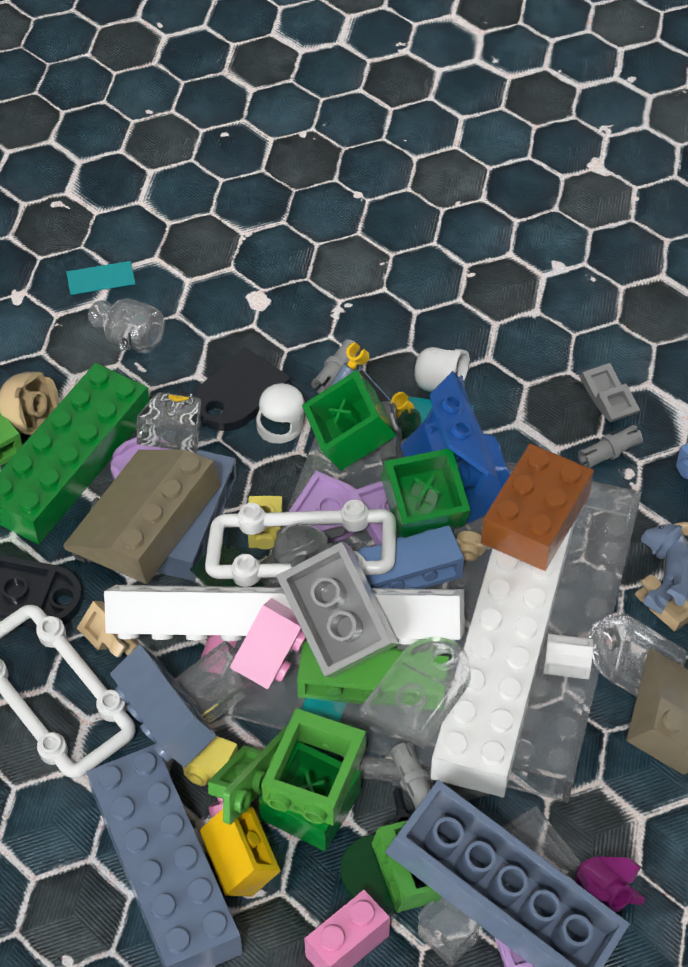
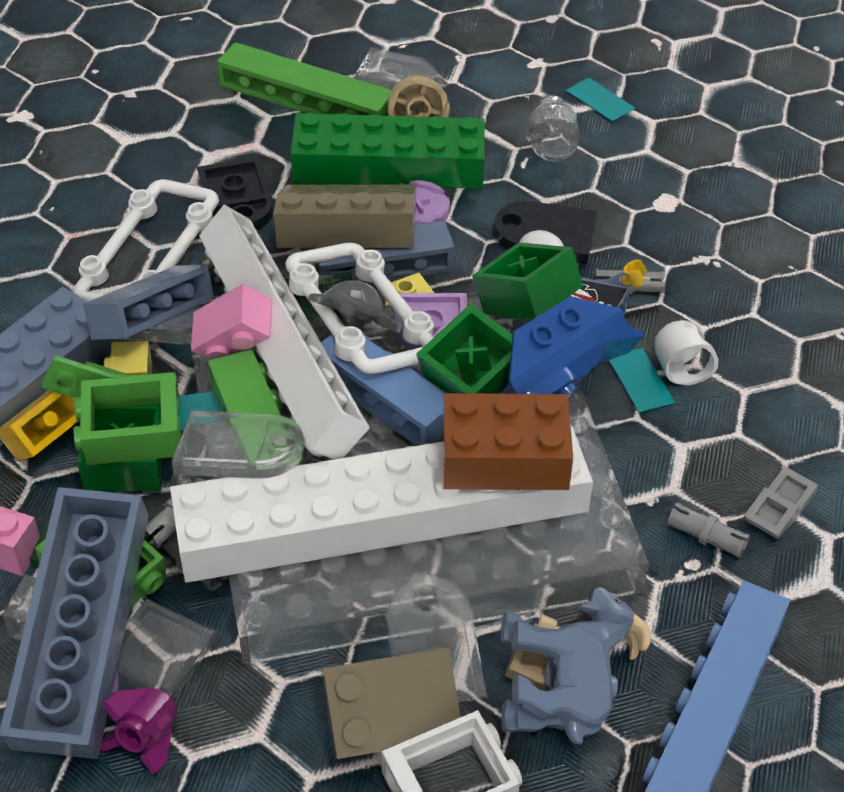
camera: 60 degrees right, 5 degrees down
(170, 422) = (468, 195): clear torso -> none
(337, 610) = (266, 333): light grey brick -> none
(568, 656) = (378, 566): white piece -> none

